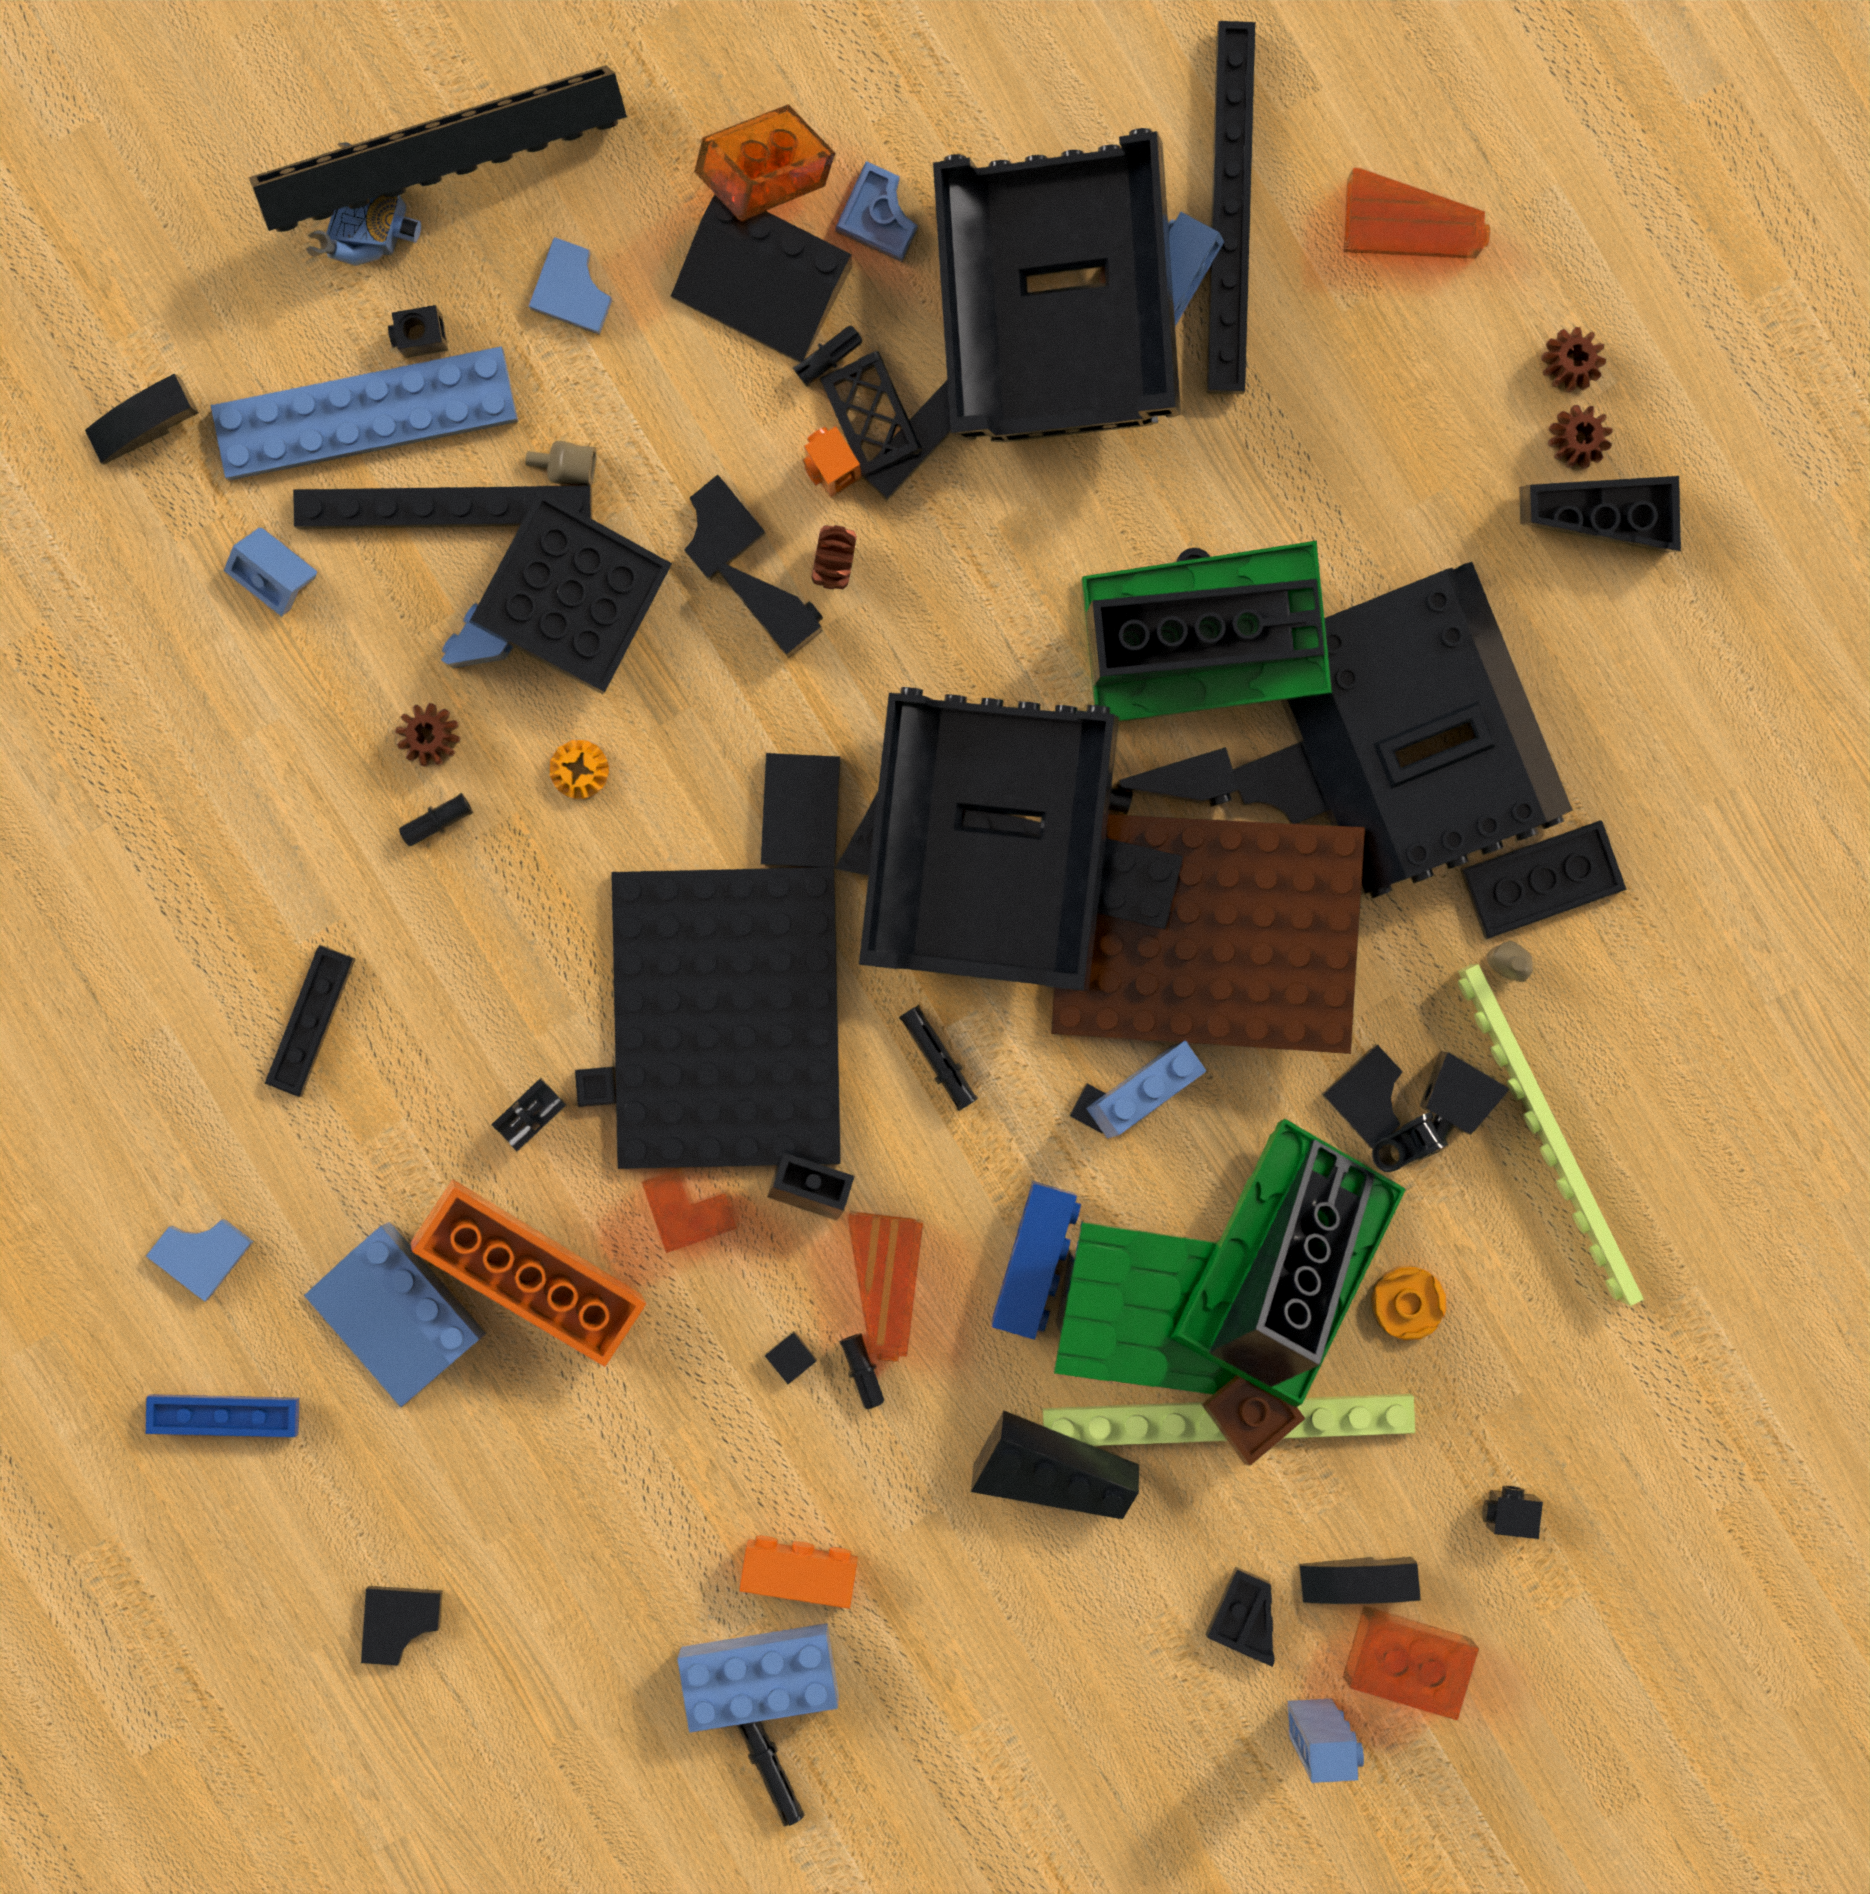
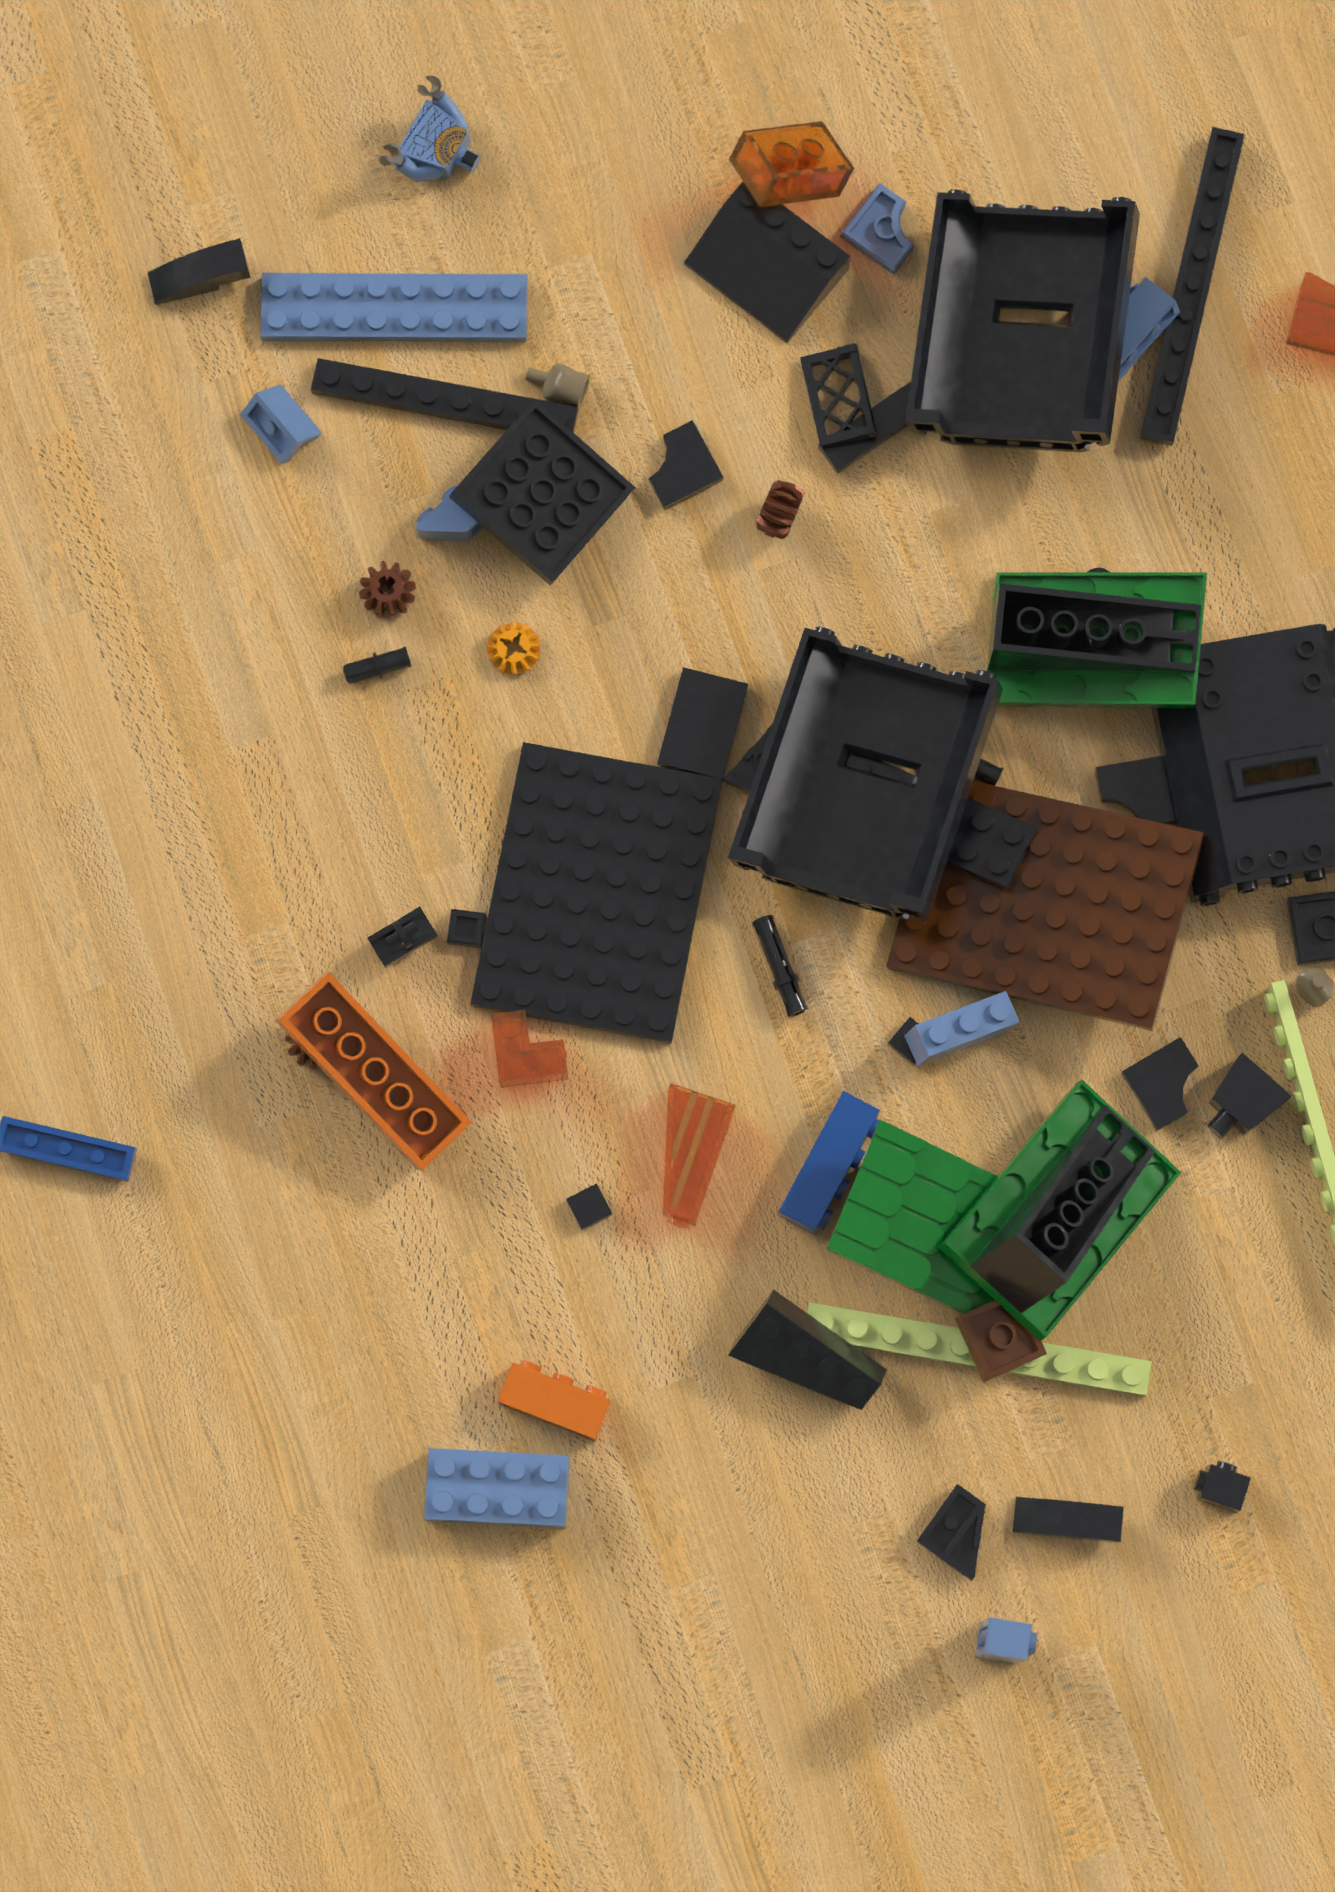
camera: 10 degrees right, 10 degrees down
(201, 1258) = (79, 1006): medium blue tile -> none
(310, 1020) = (224, 817): black tile -> none
(394, 1313) = (239, 1091): medium blue slope -> none
(395, 1618) = (177, 1367): black tile -> none
(433, 339) = (466, 258): black brick -> none
(438, 148) = (512, 97): black brick -> none
(567, 288) = (595, 238): medium blue tile -> none
(774, 1777) = (489, 1579): black pin -> none
(779, 612) = (719, 545): black slope -> none
(810, 1186) = (641, 1052): black brick -> none
(828, 355) = (811, 339): black axle -> none
(831, 461) = (795, 427): orange brick -> none
(862, 1371) = (651, 1231): black axle -> none
(1192, 779) = (1058, 767): black slope -> none
(1408, 1302) = (1164, 1277): light orange tile -> none
(1410, 1662) = (1100, 1604): clear orange brick -> none
(1413, 1141) = (1196, 1125): black piece -> none

